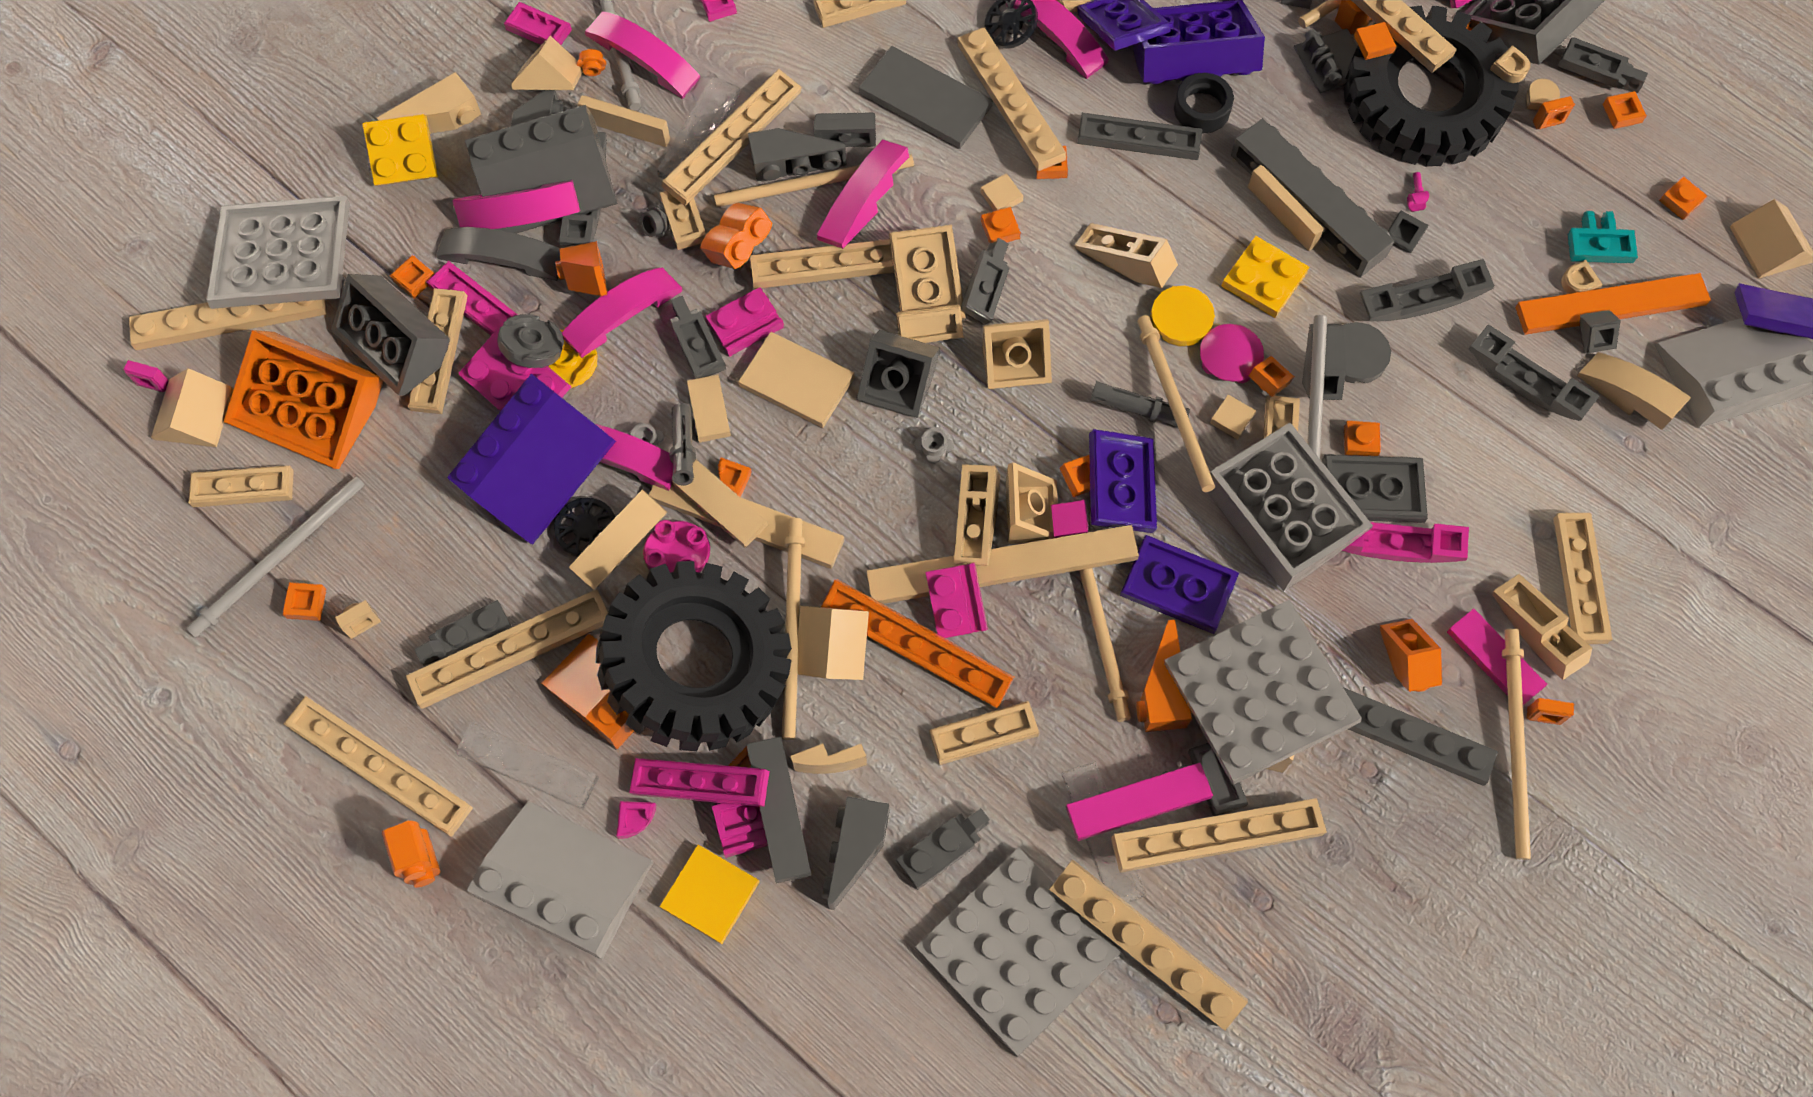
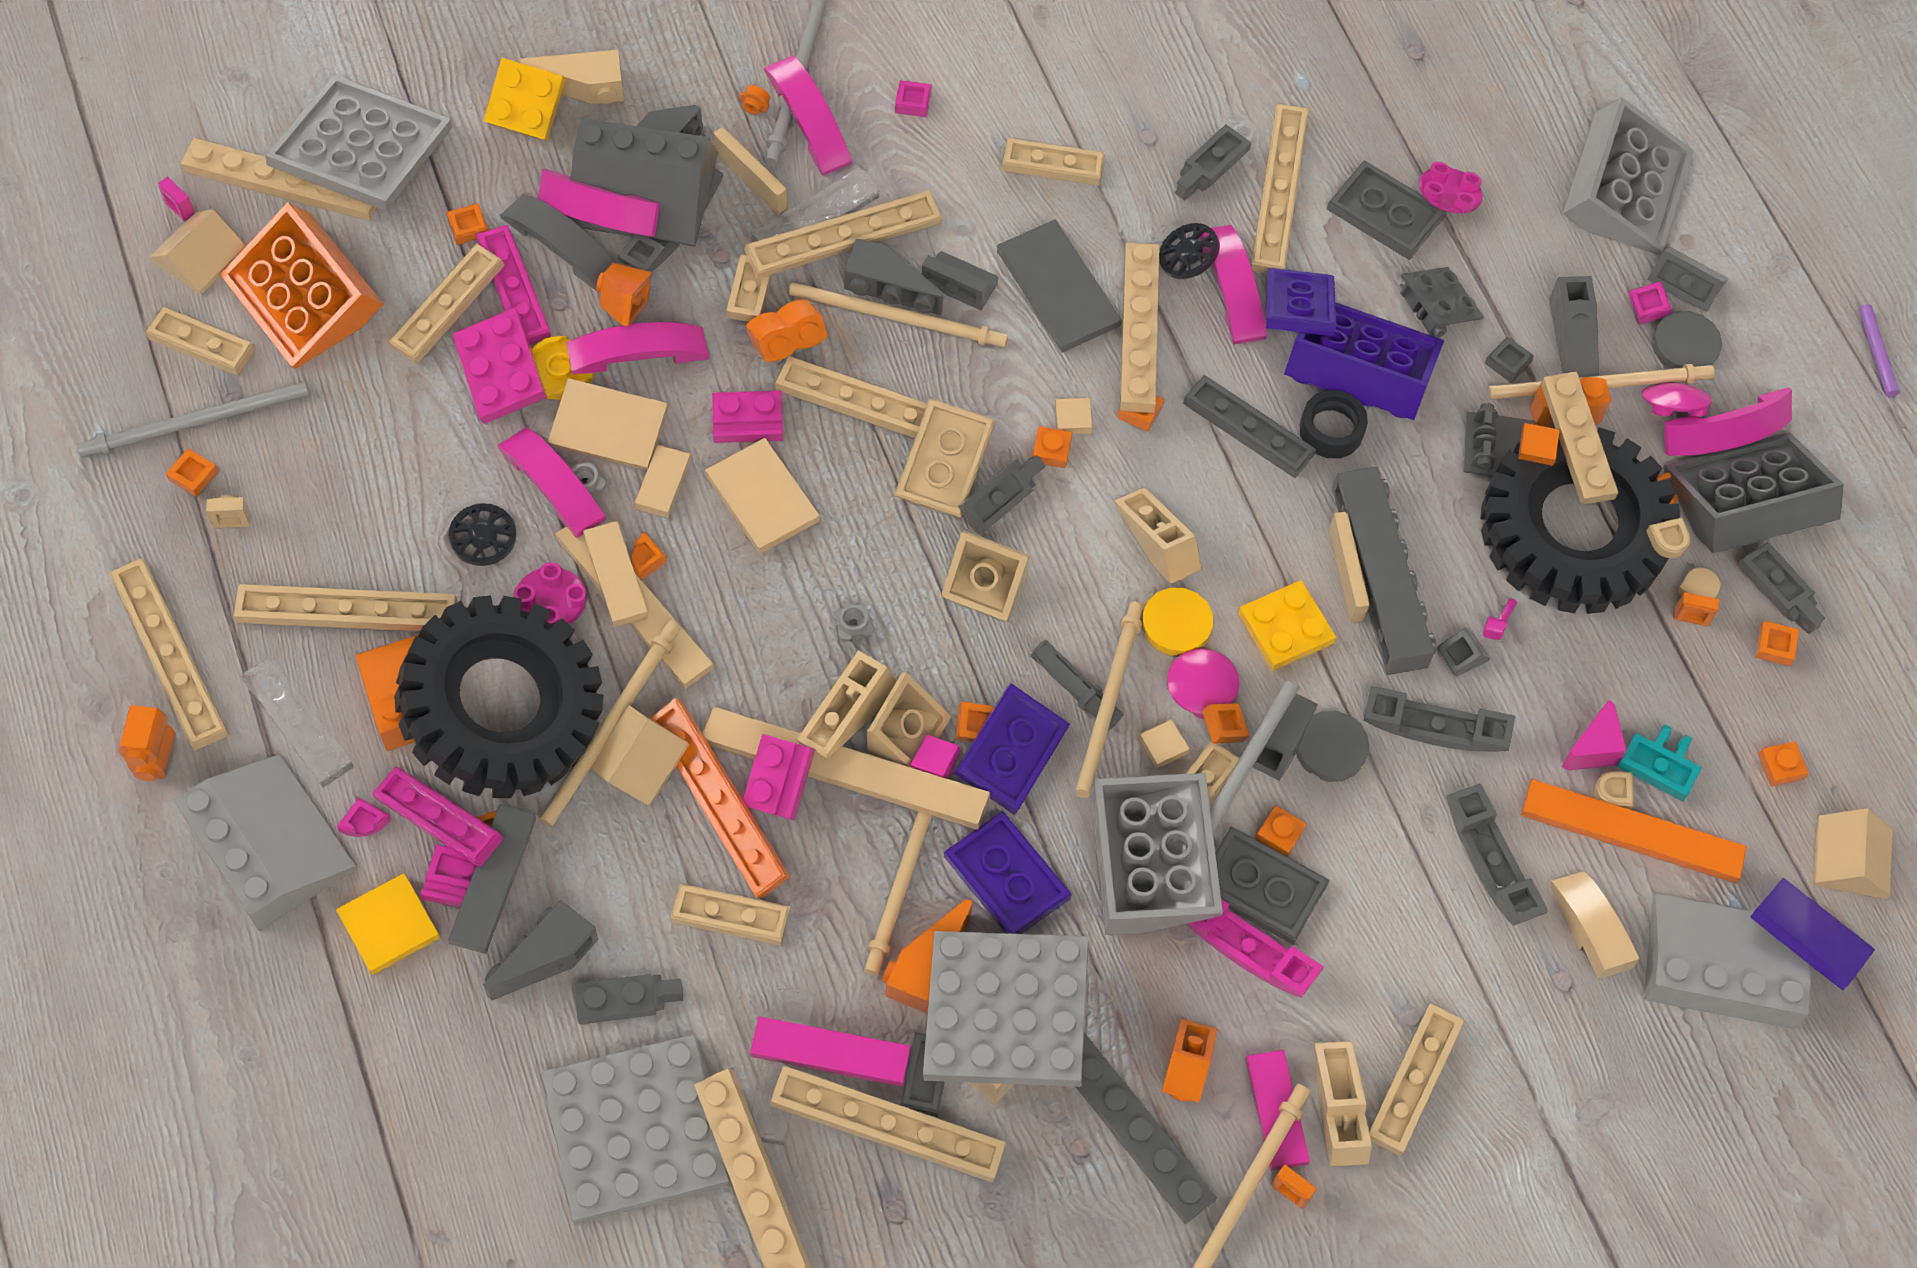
camera: 25 degrees right, 5 degrees down
(388, 332) = (410, 264): dark grey slope -> none
(464, 633) = (314, 573): dark grey hinge -> none
(530, 341) = (532, 335): dark grey tile -> none
(531, 459) = (466, 444): dark purple slope -> none
(536, 24) = (725, 41): dark pink plate -> none
(548, 69) = (708, 88): tan slope -> none
(618, 539) = (499, 559): tan slope -> none
(635, 383) = (608, 424): none -> tan tile
(654, 222) = (719, 280): dark grey plate -> none
(682, 454) = (597, 520): dark grey pin -> none
(696, 340) = (689, 411): dark grey hinge -> none
(816, 760) = (559, 856): tan slope -> none
(858, 199) = (926, 351): dark pink slope -> none
(897, 373) = (860, 536): dark grey slope -> none
(931, 324) = (919, 506): tan tile -> none
(1549, 247) = (1600, 744): none -> dark pink slope
(1599, 331) = (1597, 850): dark grey slope -> none

